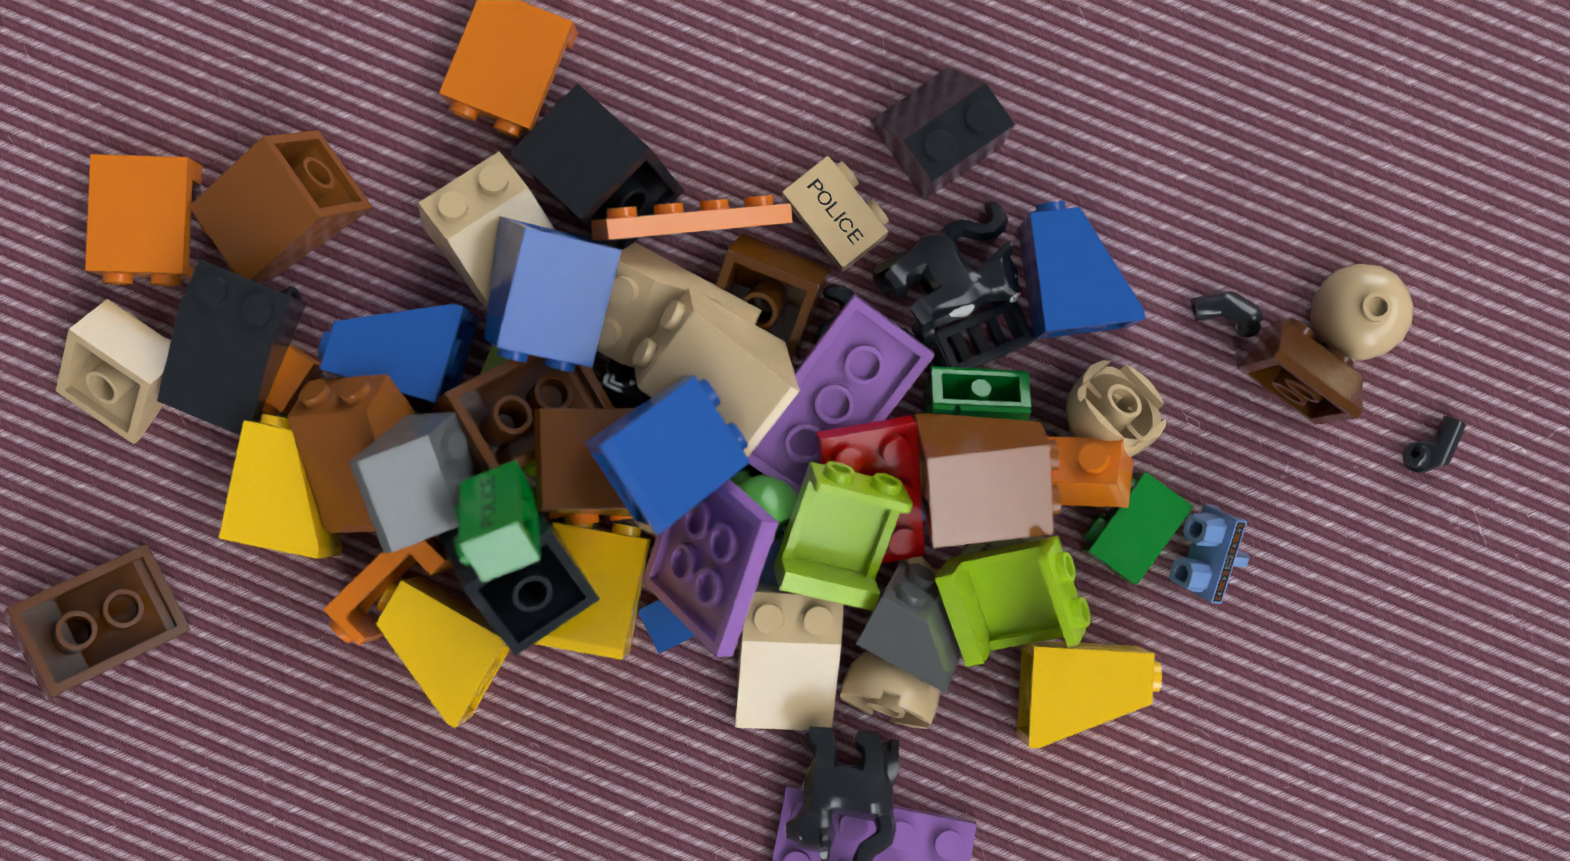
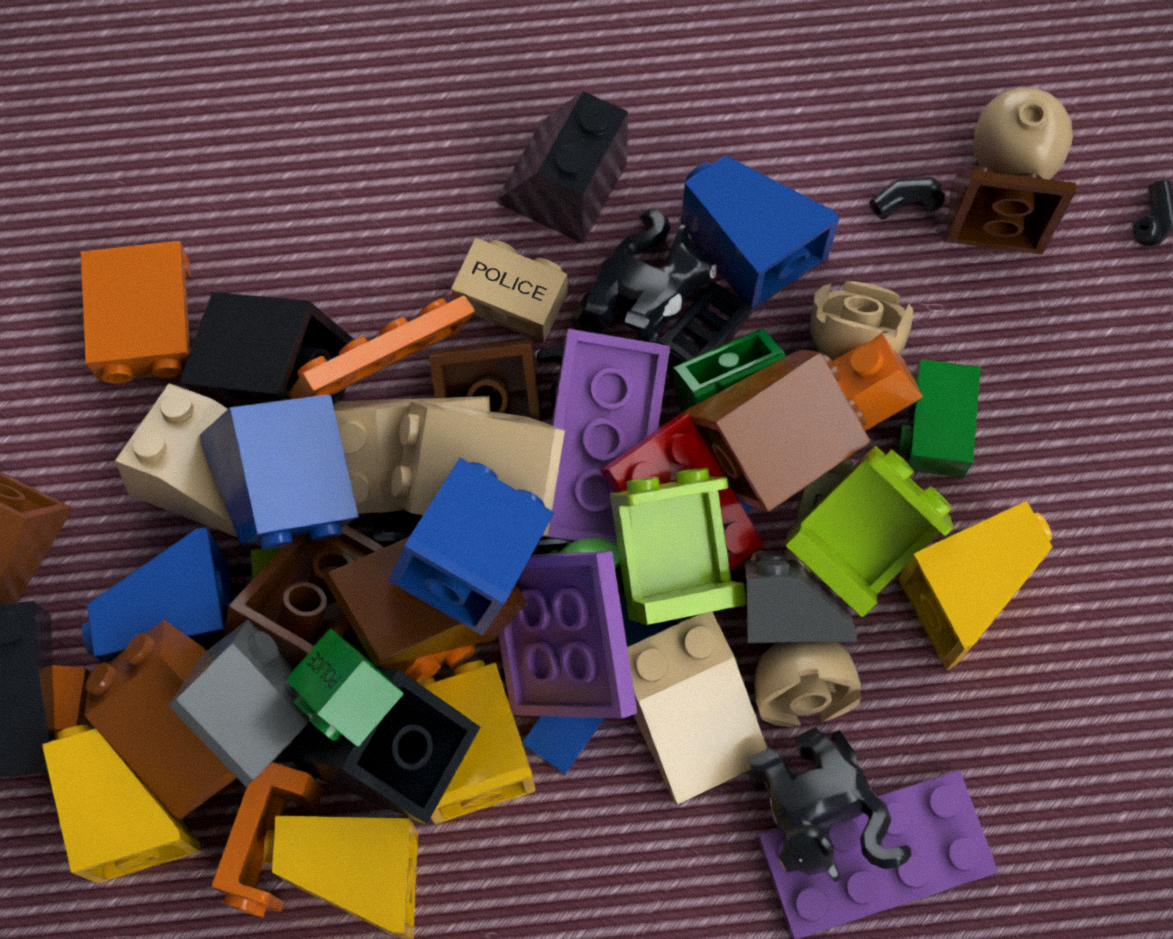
camera: 30 degrees left, 15 degrees down
(1211, 554) = (1022, 402): medium blue hips -> none

